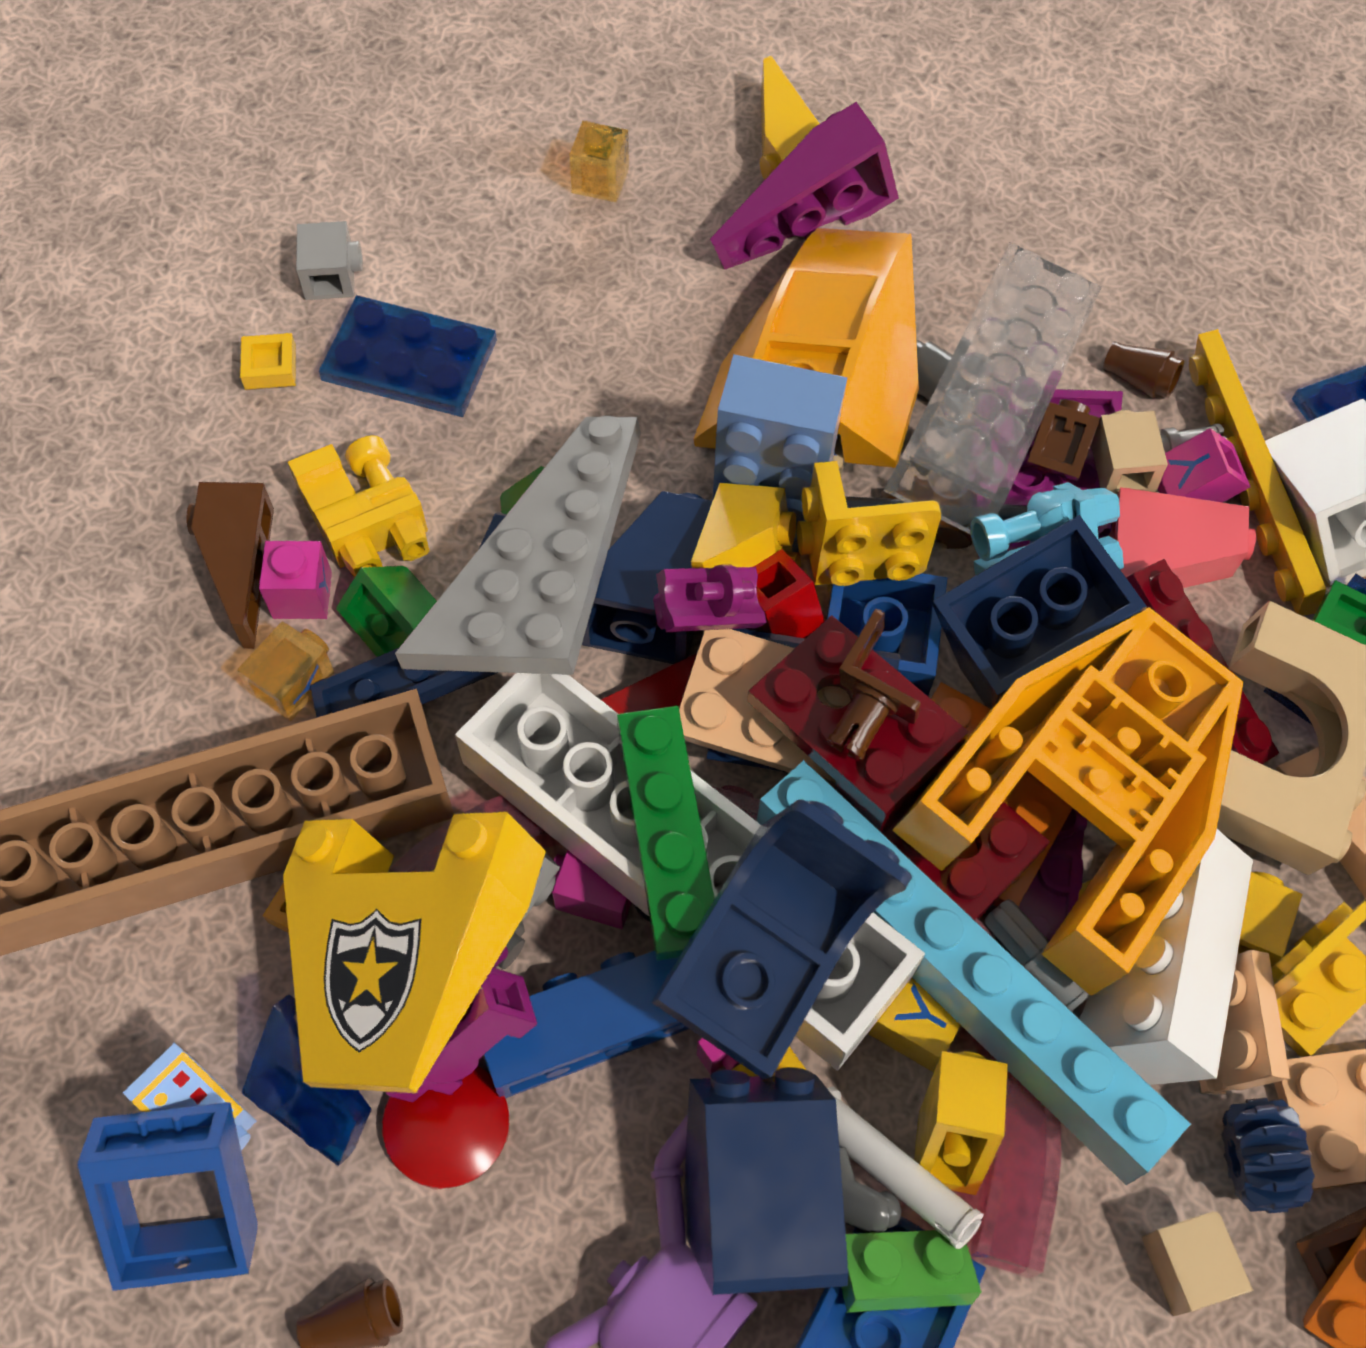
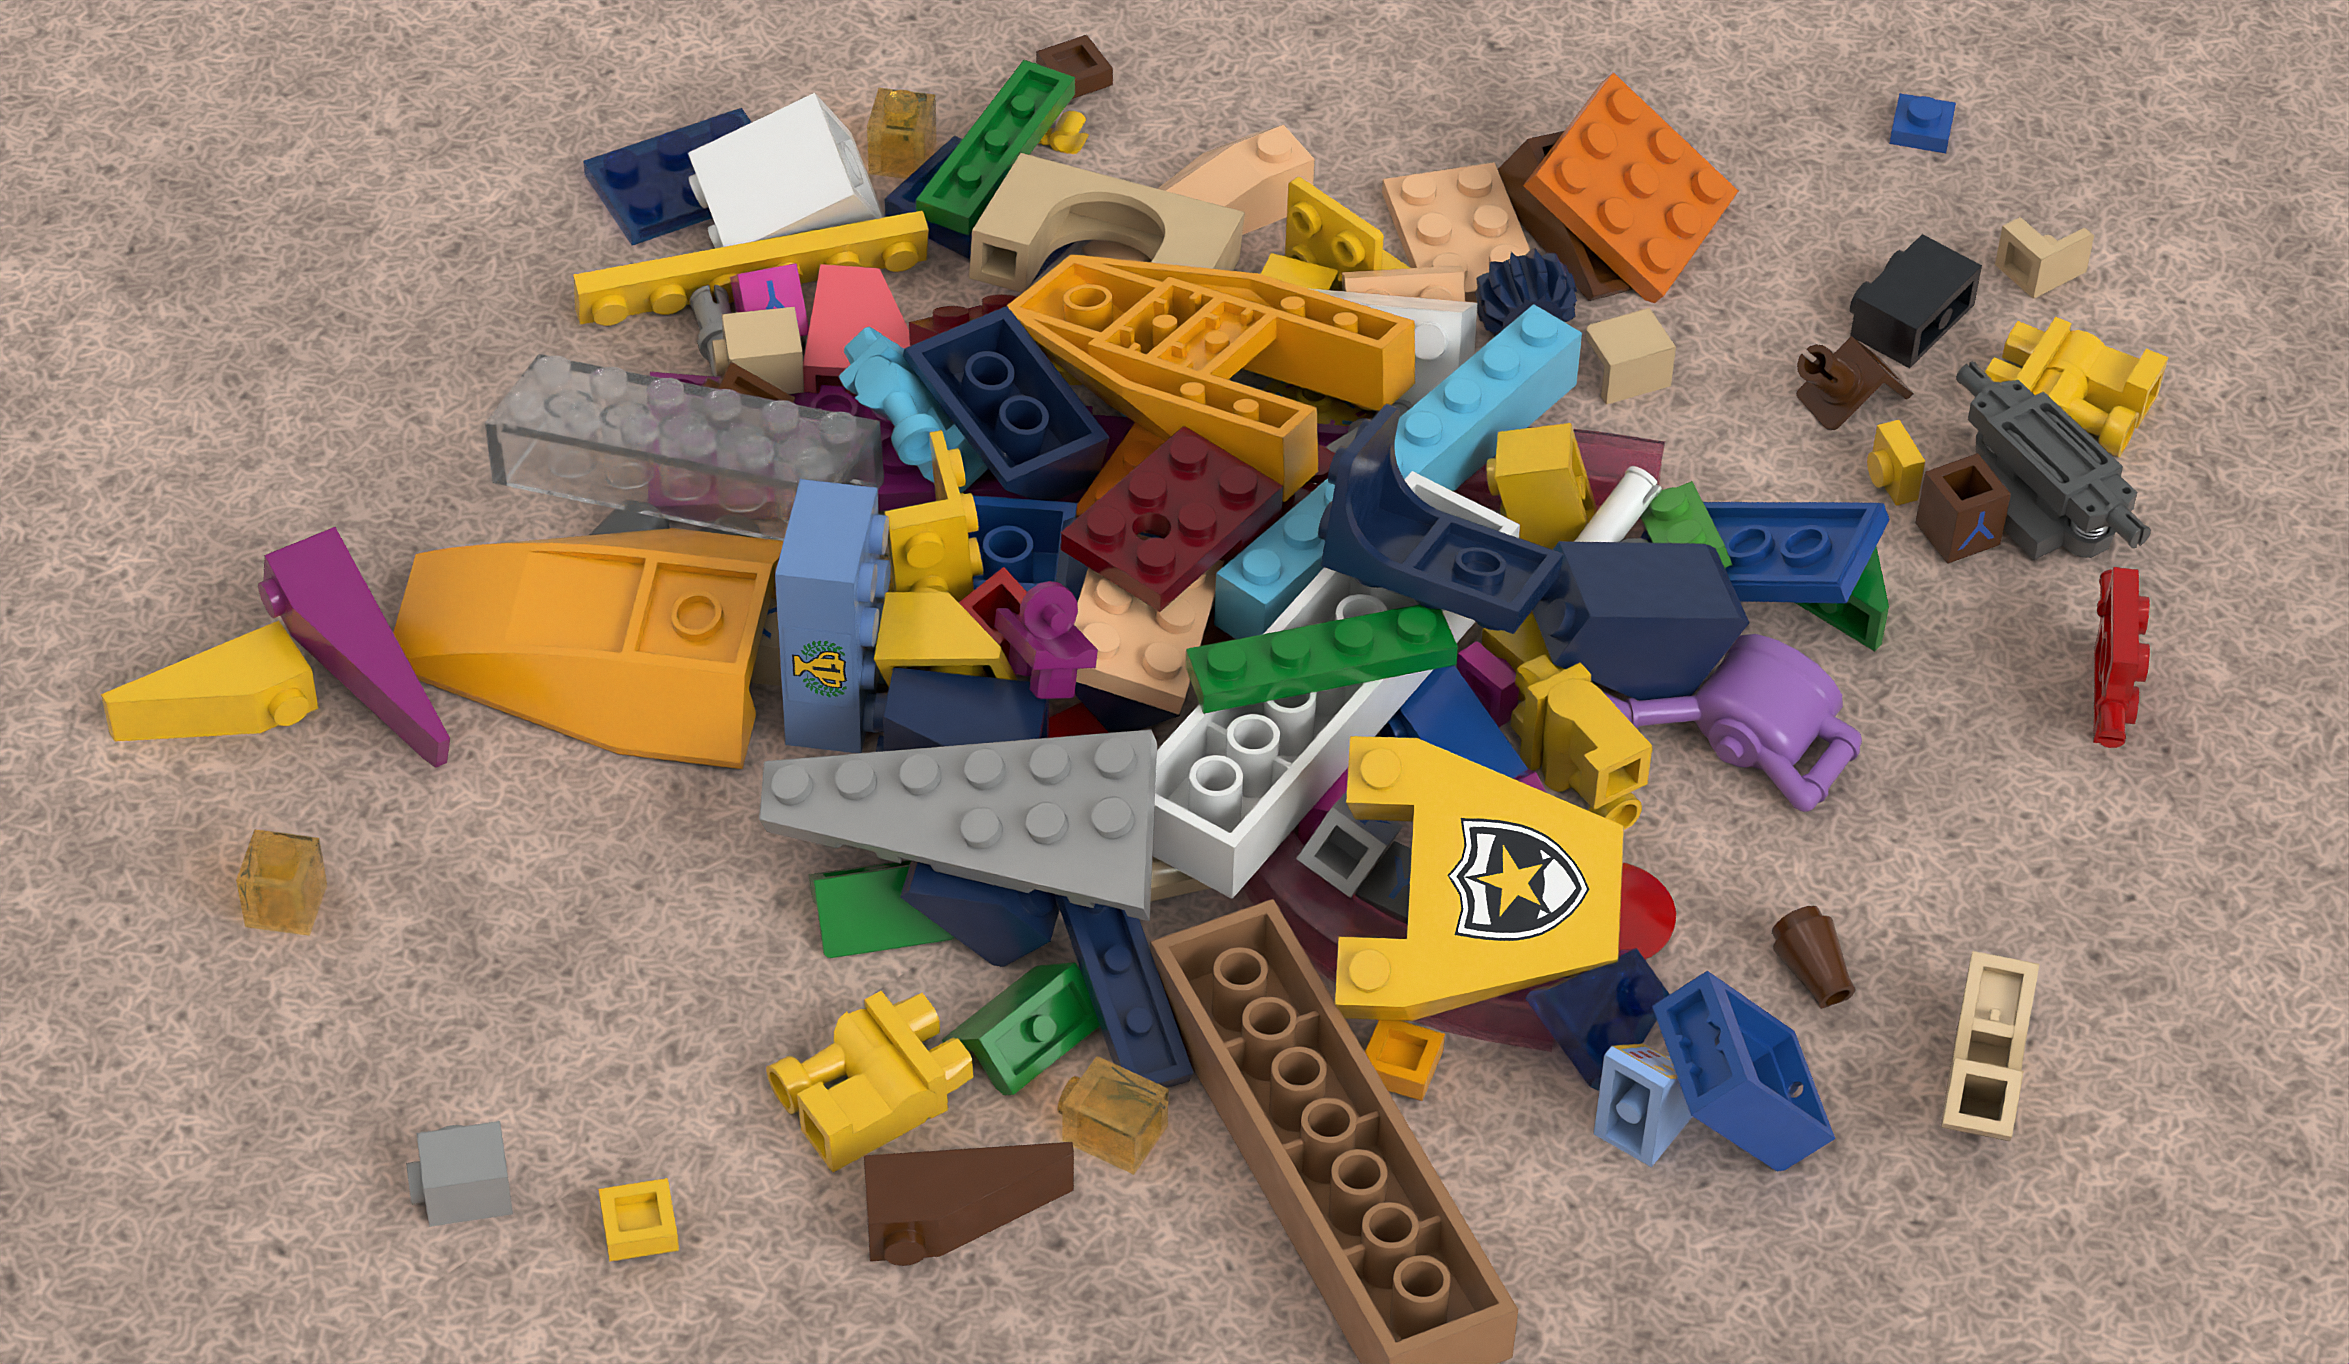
camera: 95 degrees left, 15 degrees down
(295, 579) = (990, 1108): dark pink brick -> none
(408, 355) = (612, 1076): clear blue plate -> none
(621, 1109) = (1580, 739): none -> yellow hips
(871, 698) = (1178, 472): reddish brown bracket -> none
(1145, 368) = (614, 342): reddish brown cone -> none

